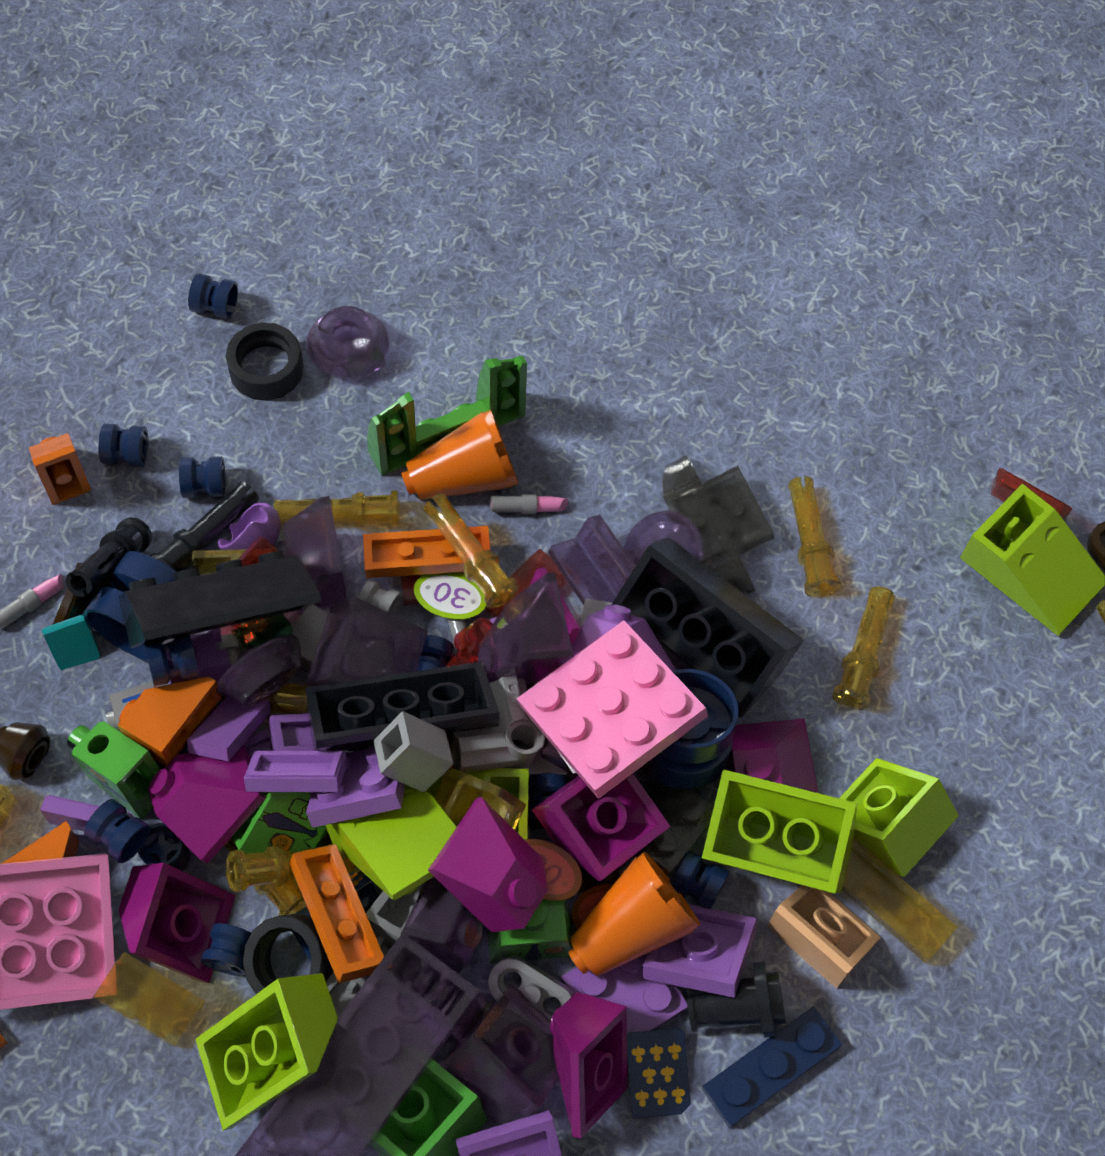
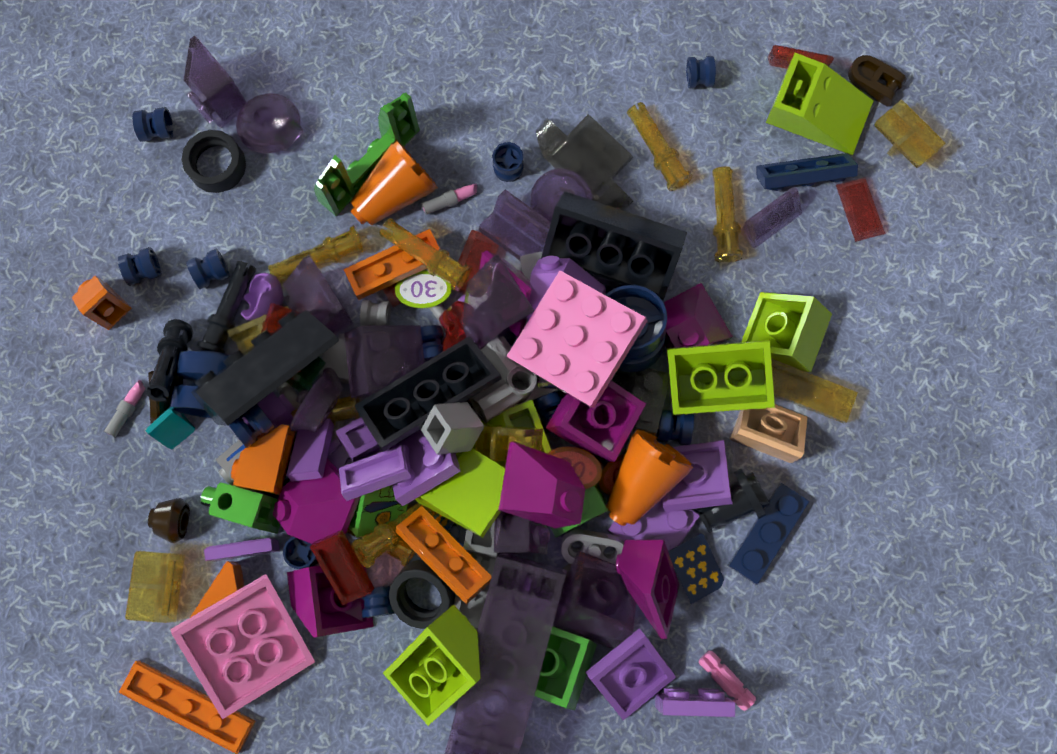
camera: 15 degrees left, 15 degrees up
(117, 830) = (266, 557): dark blue wheel -> none
(148, 999) = (337, 658): clear yellow panel -> none
(204, 881) = (342, 567): none -> clear red tile
(299, 277) = (211, 86): none -> clear purple slope
(611, 480) = (508, 155): none -> dark blue wheel
(898, 469) = (701, 72): none -> dark blue wheel
(925, 672) = (772, 218): none -> clear purple slope
(990, 633) = (806, 171): none -> dark blue plate
(1045, 706) = (860, 209): none -> clear red tile

